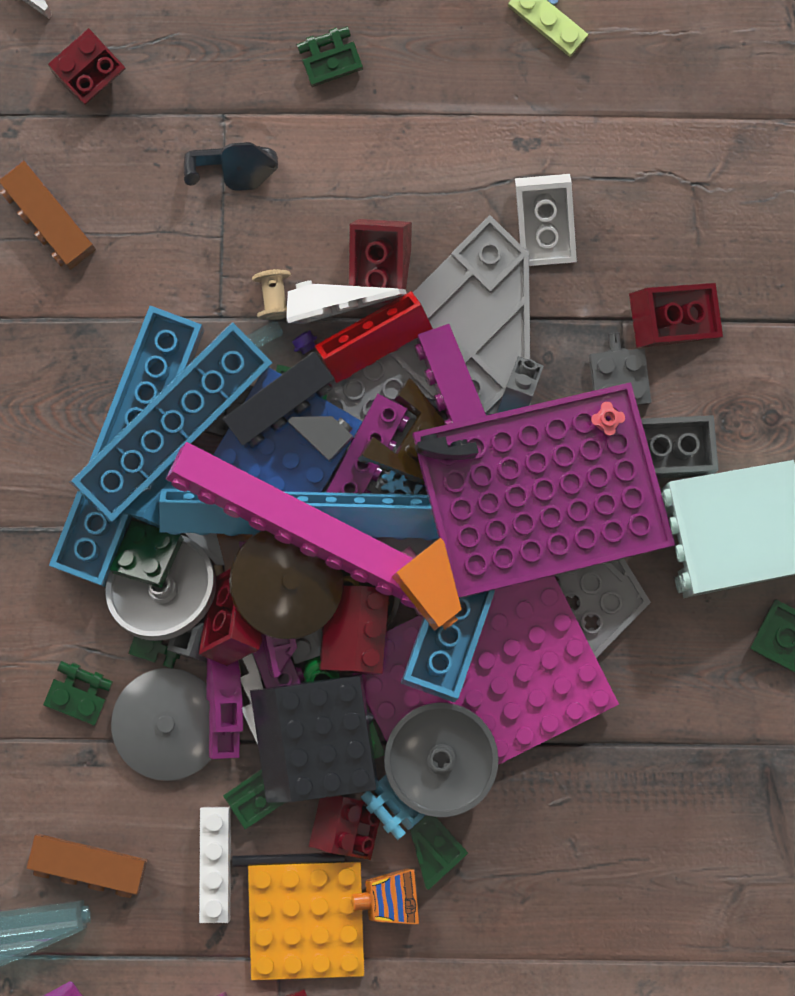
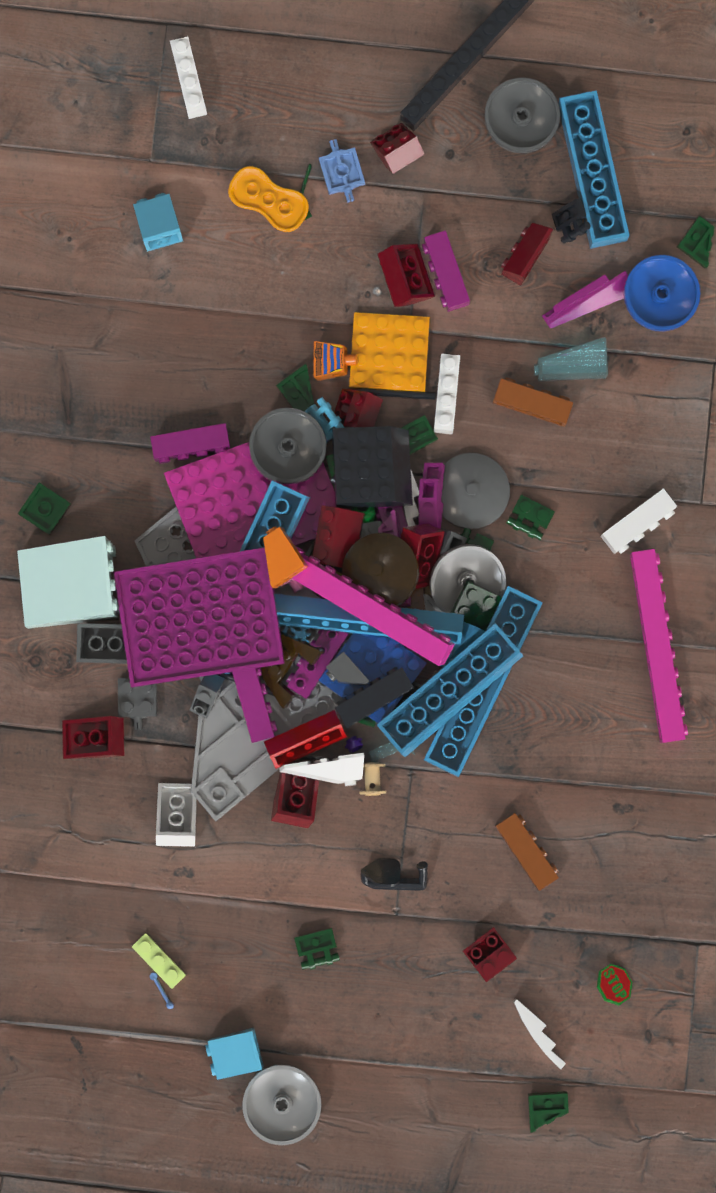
camera: 175 degrees left, 0 degrees up
(437, 448) = (267, 649): black slope -> none
(585, 754) = (190, 442): none -> magenta brick
(600, 418) = (154, 661): coral plate -> none

